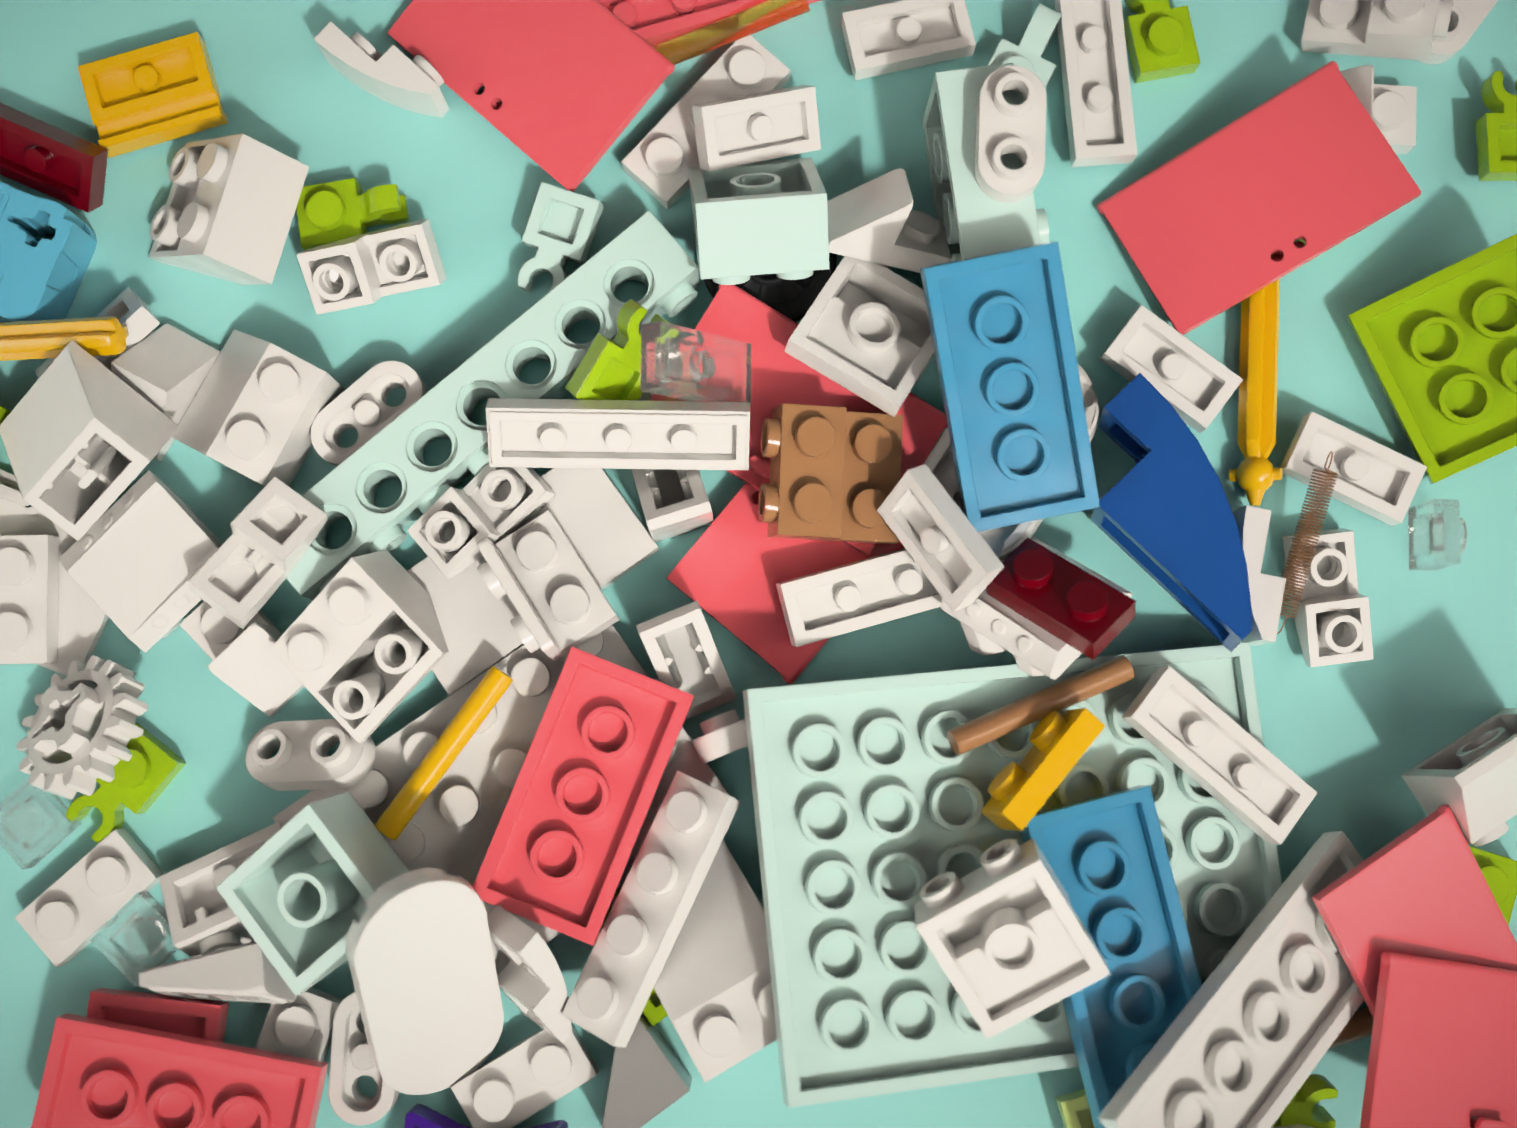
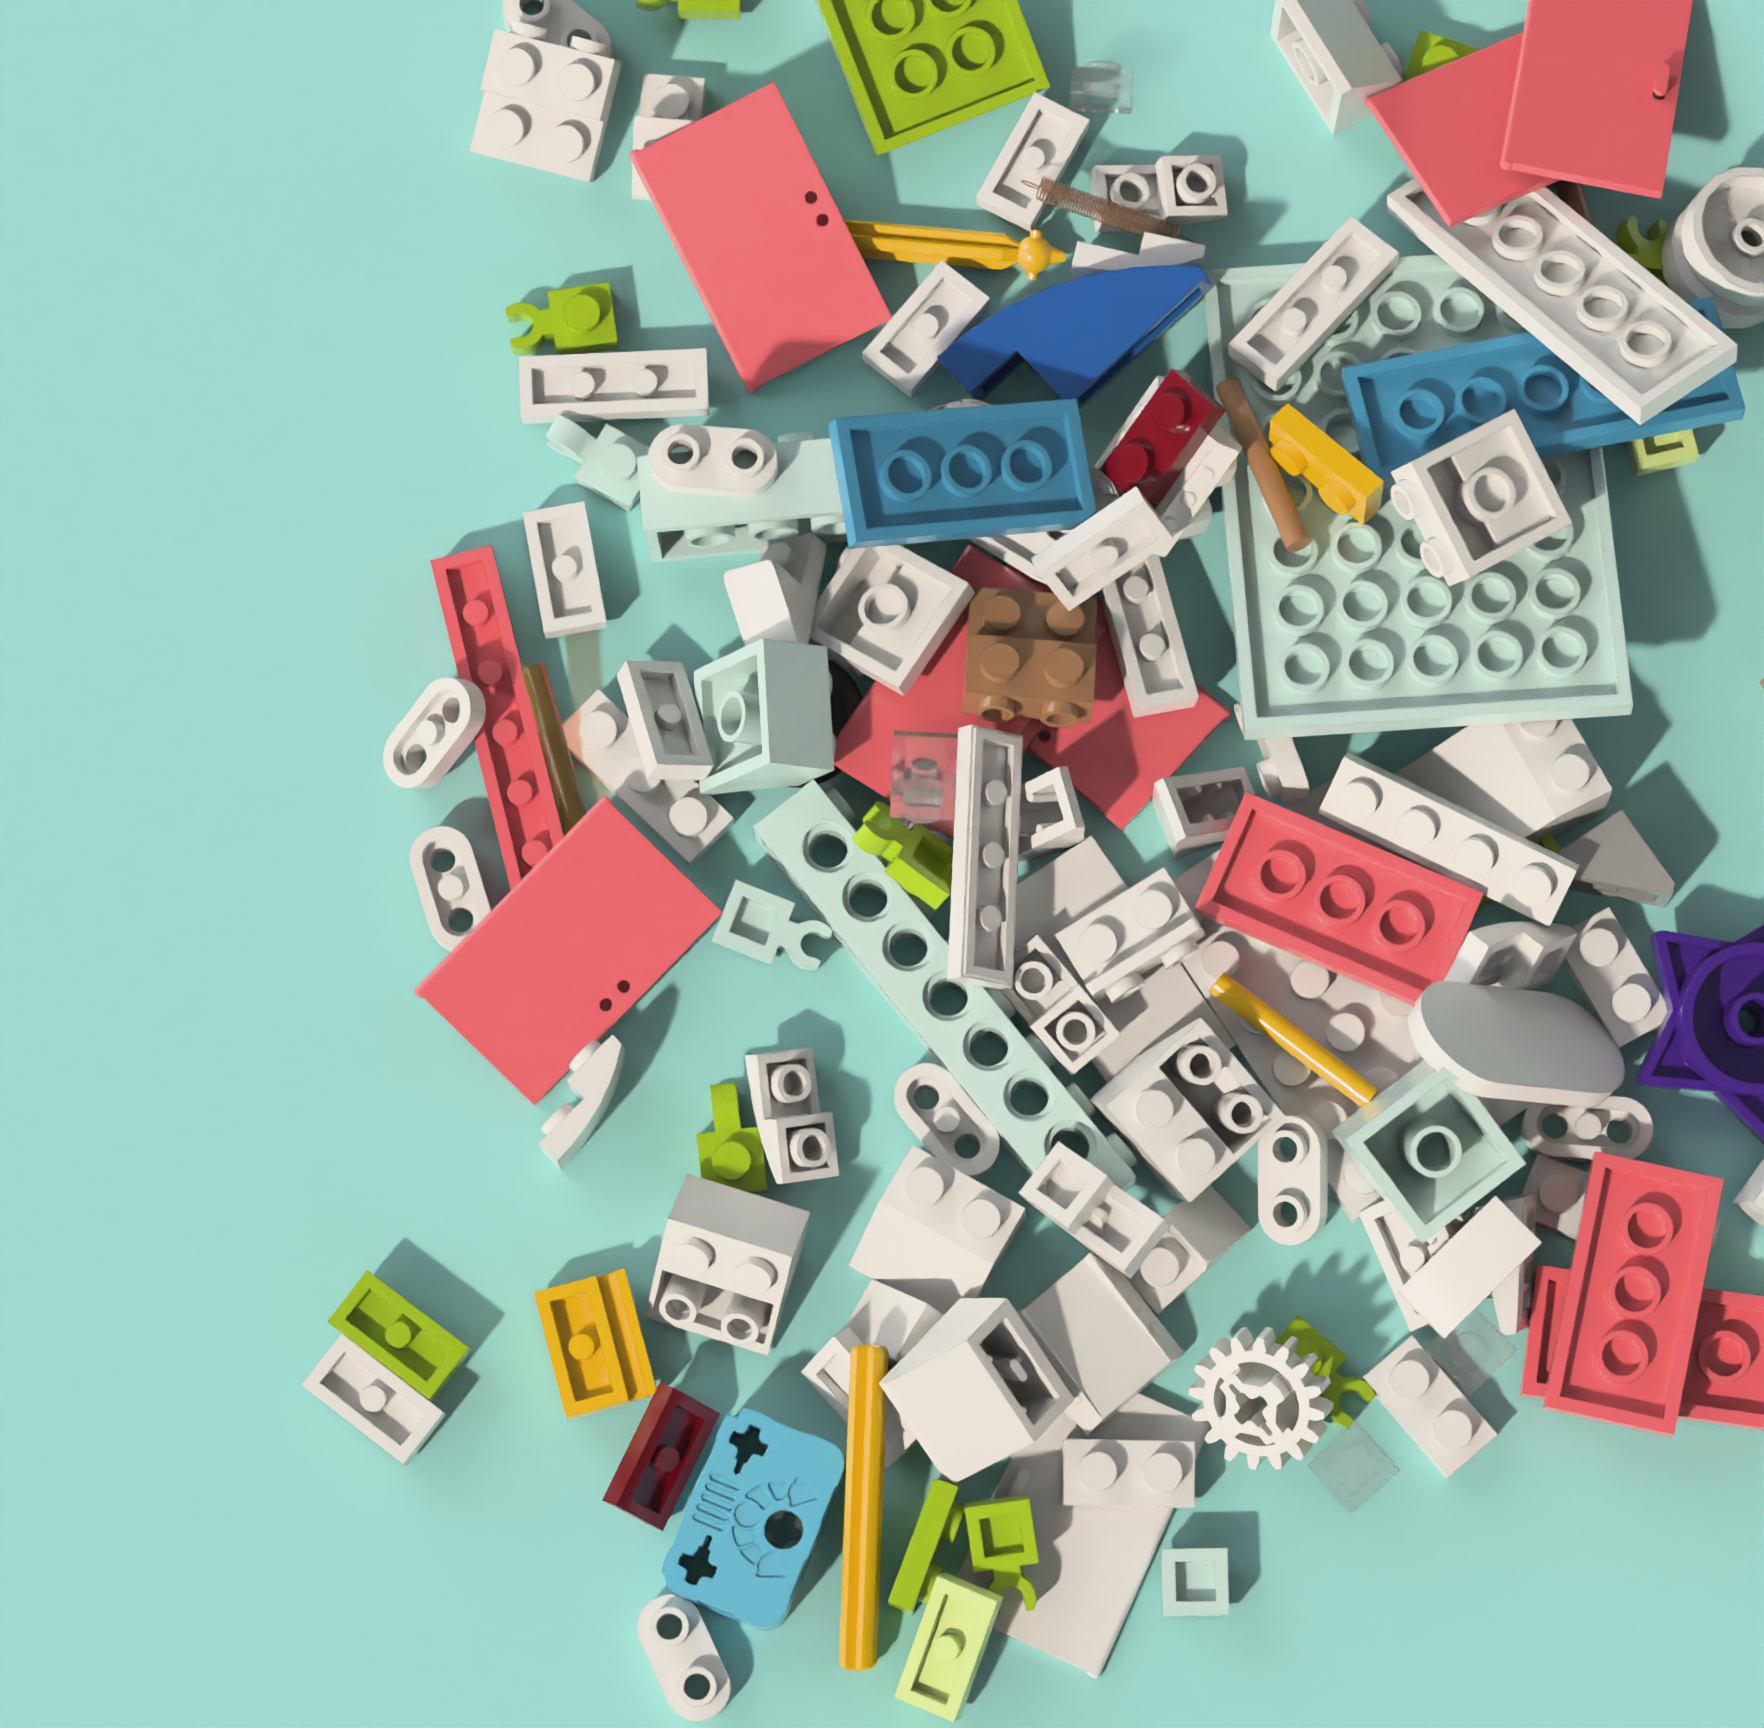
camera: 80 degrees left, 5 degrees down
(195, 939) = (1469, 1267): none -> white slope

